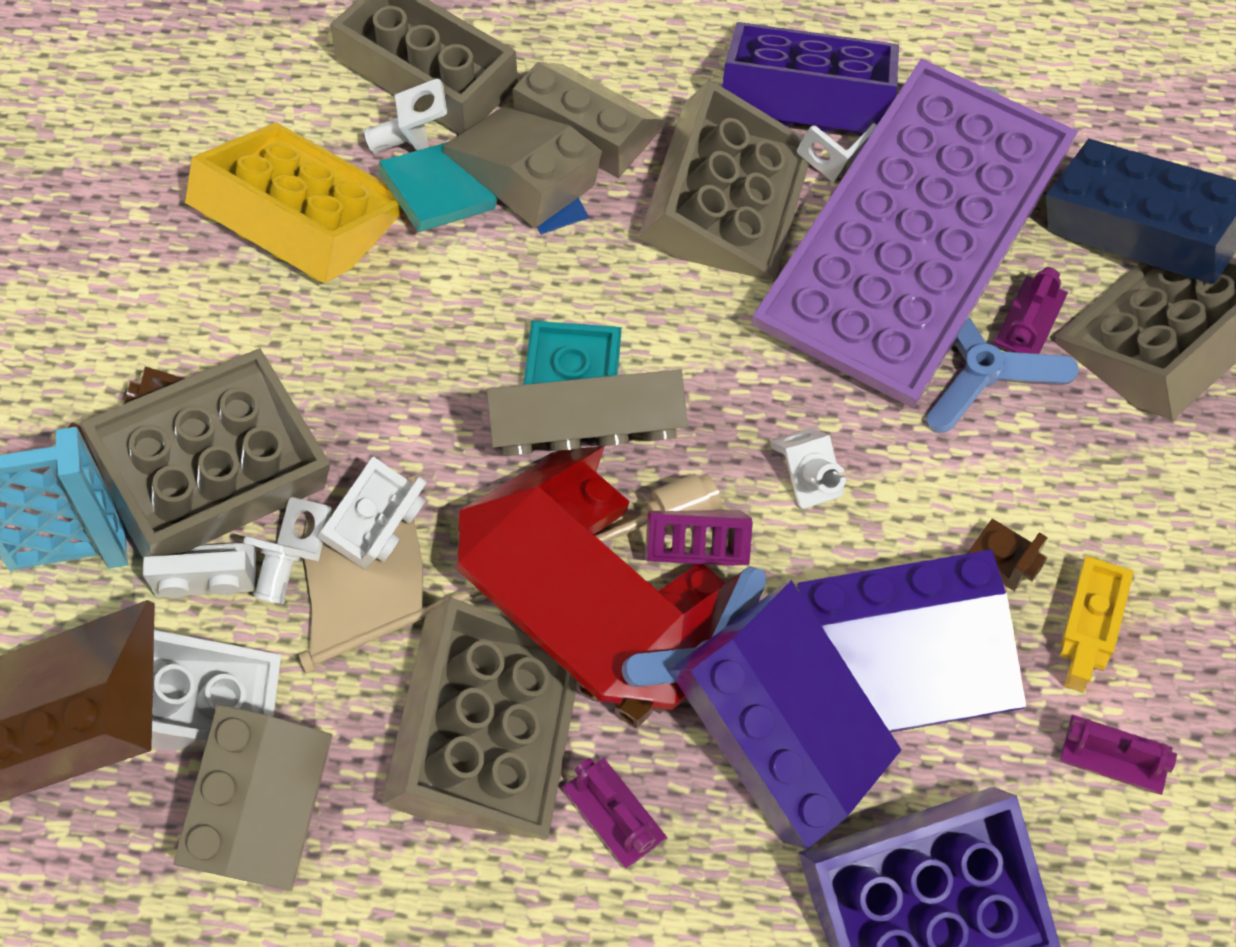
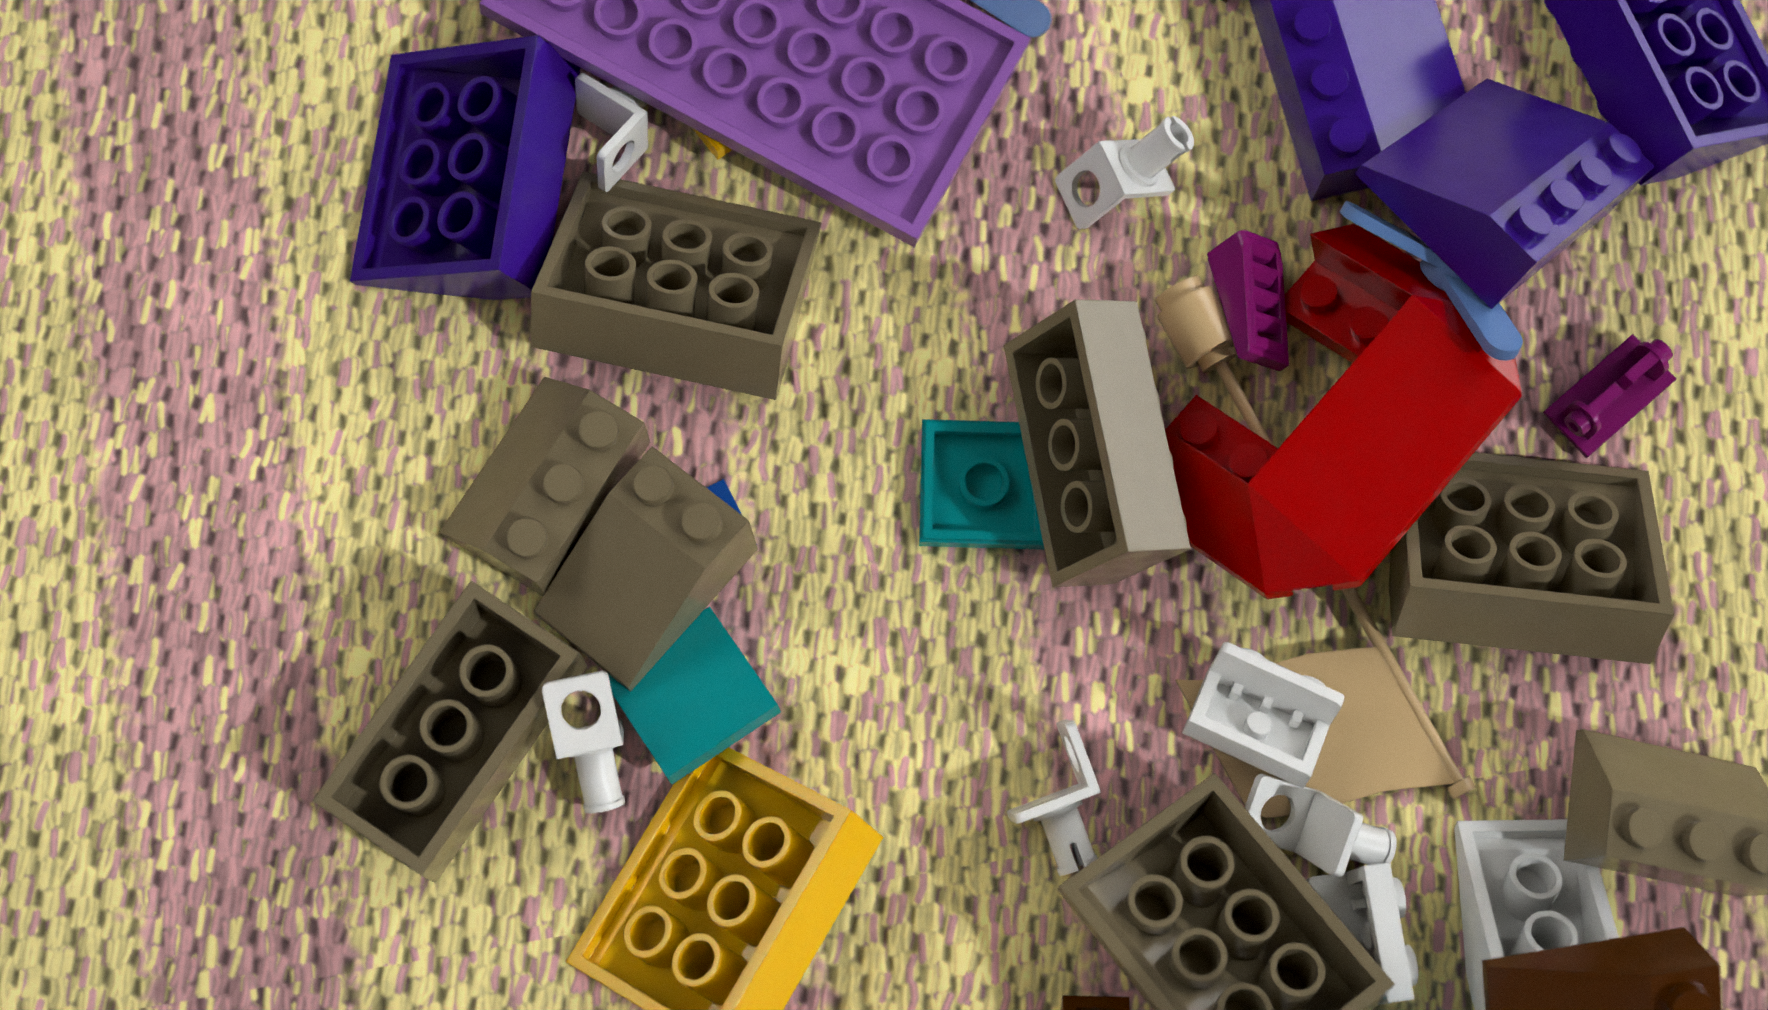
camera: 95 degrees left, 15 degrees up
(328, 389) = (1060, 809): none -> white bracket

